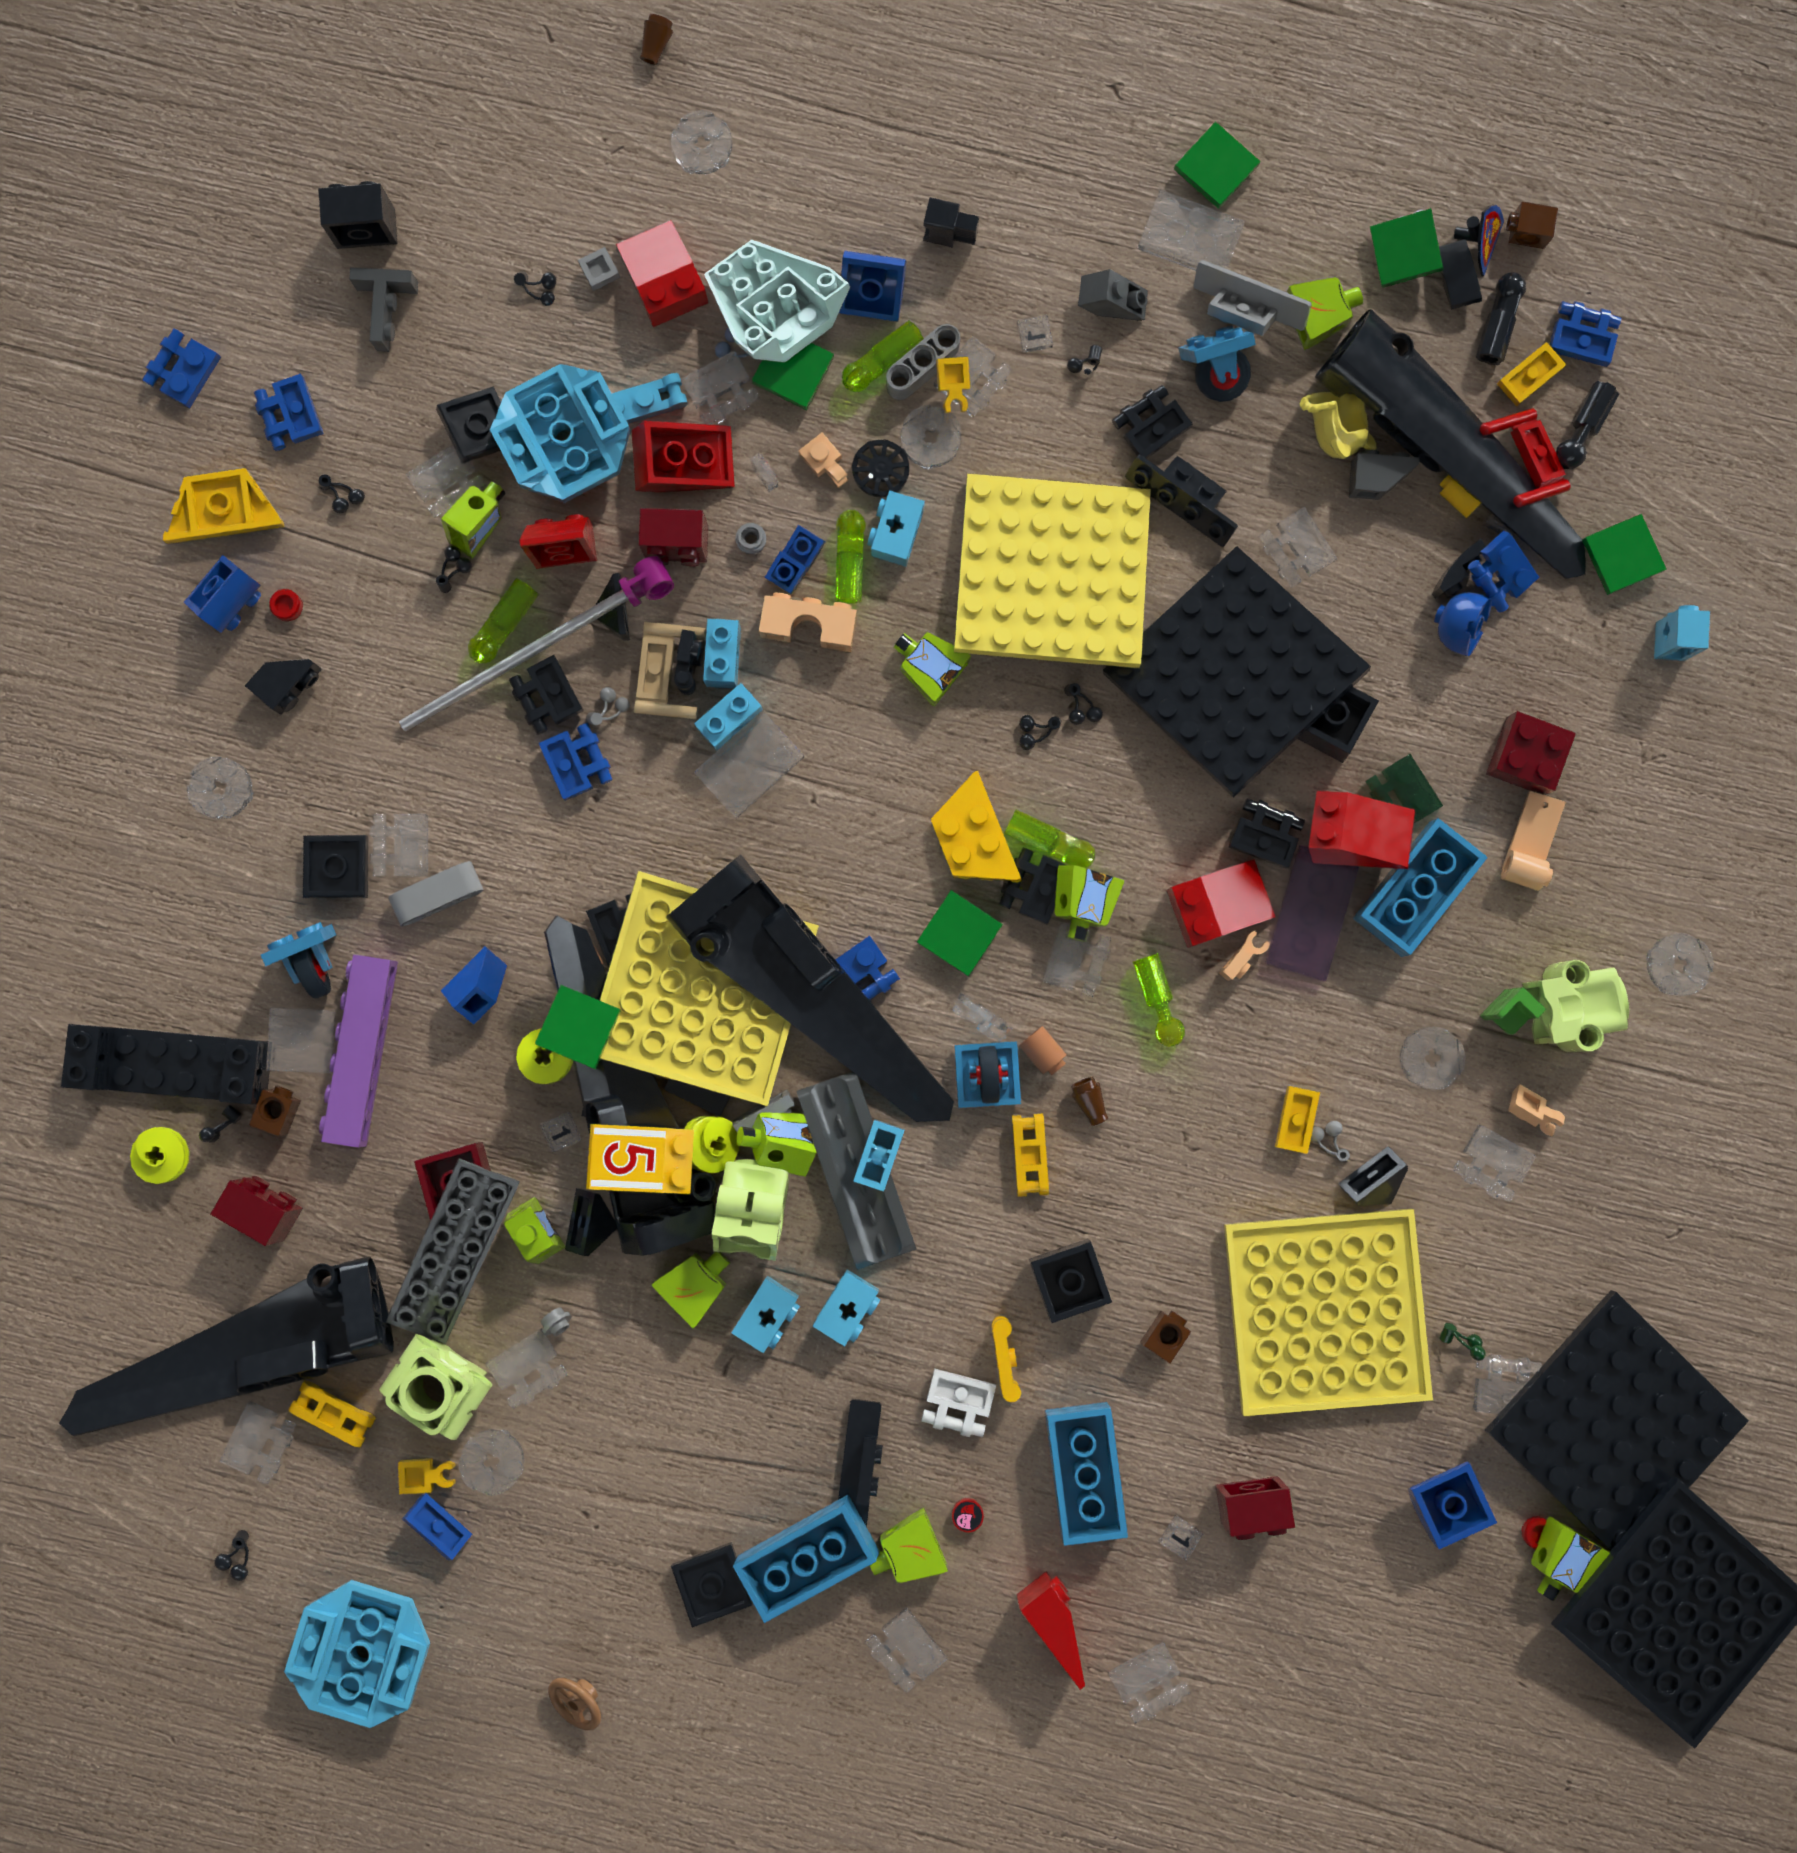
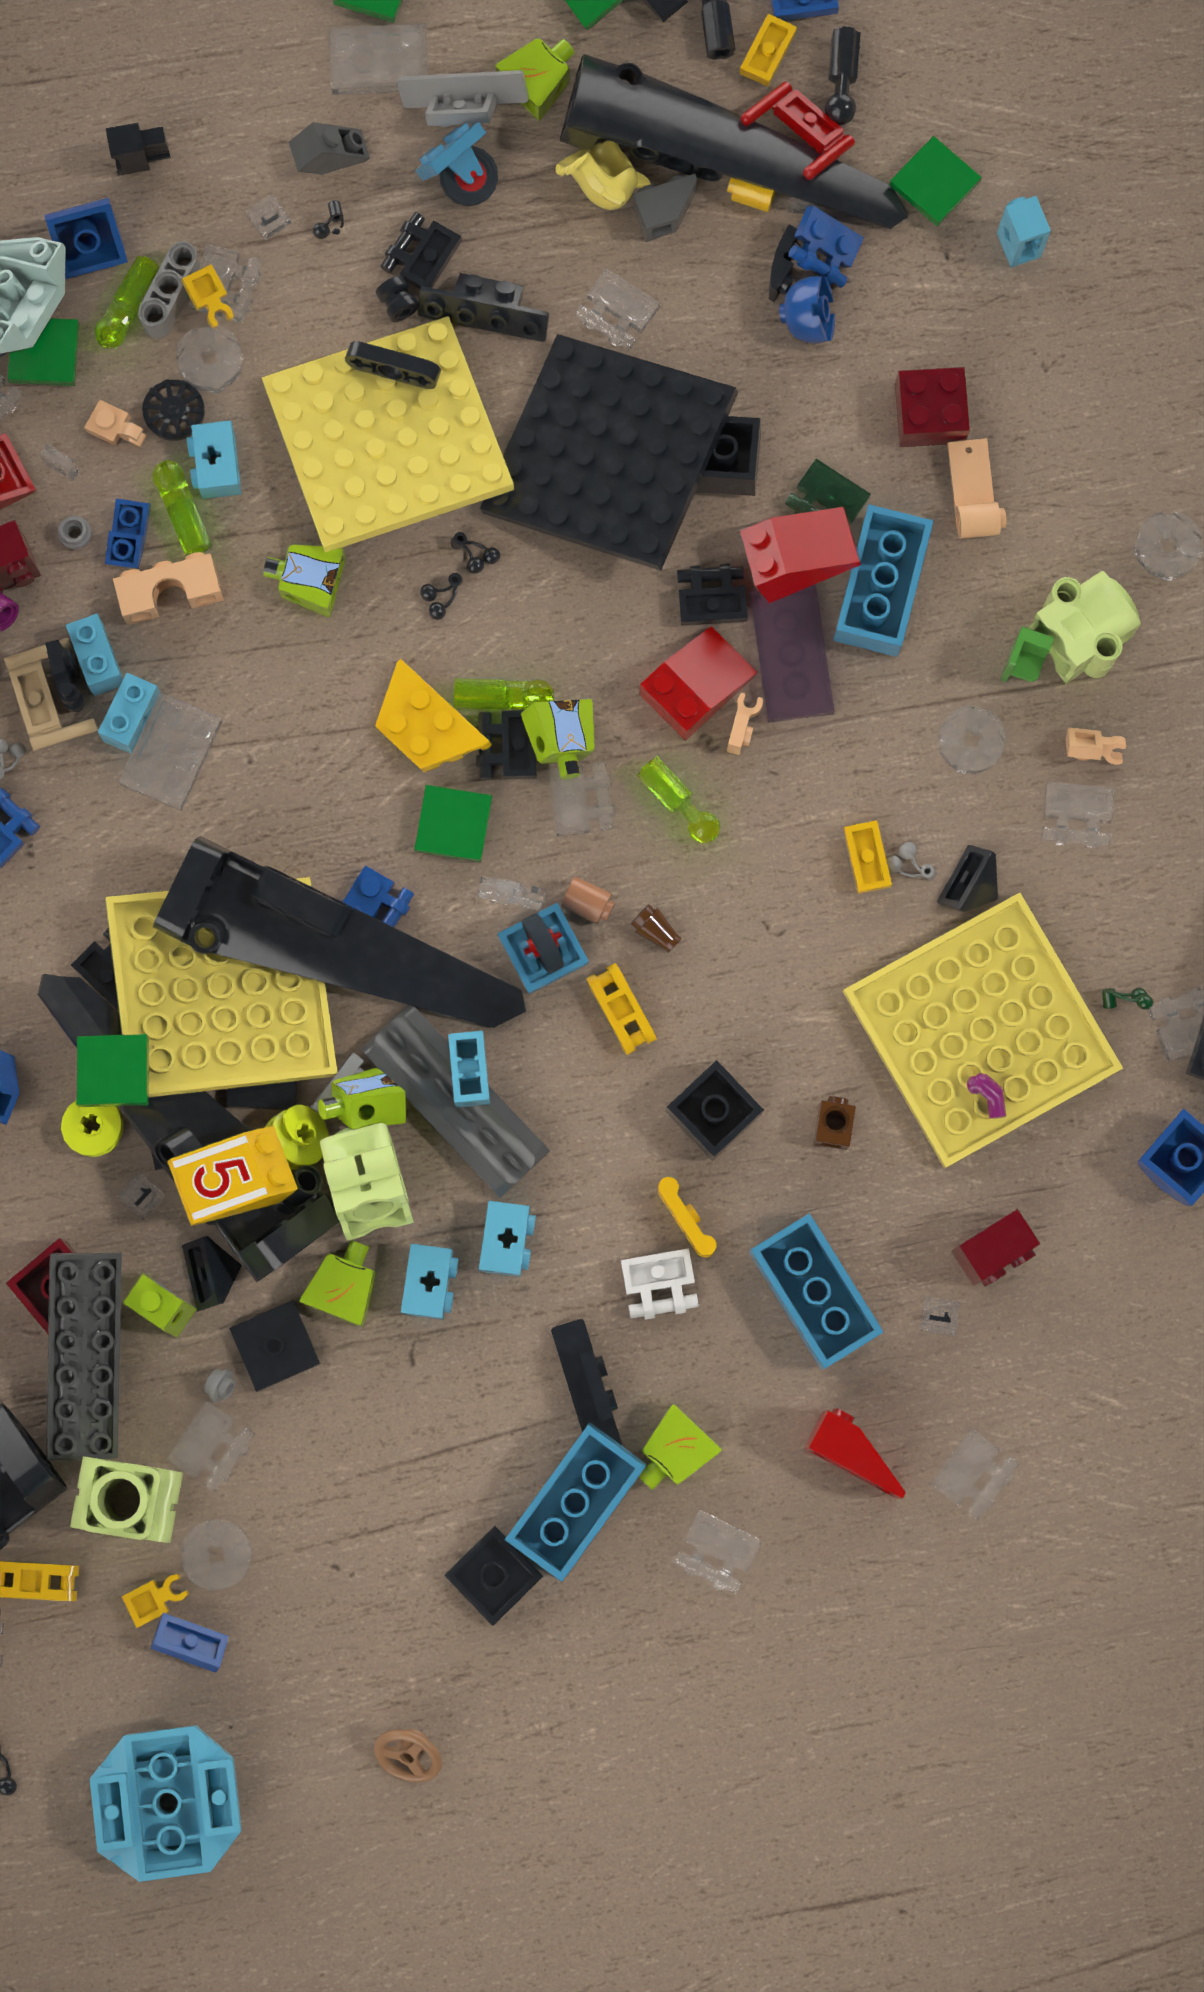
camera: 25 degrees left, 5 degrees down
(616, 1309) = (275, 1346): none -> black plate
(967, 1515) = (718, 1390): tile -> none
(1084, 514) = (392, 365): none -> black beam
(1113, 455) = (397, 298): none -> black wheel
(1311, 1370) = (991, 1091): none -> magenta arm

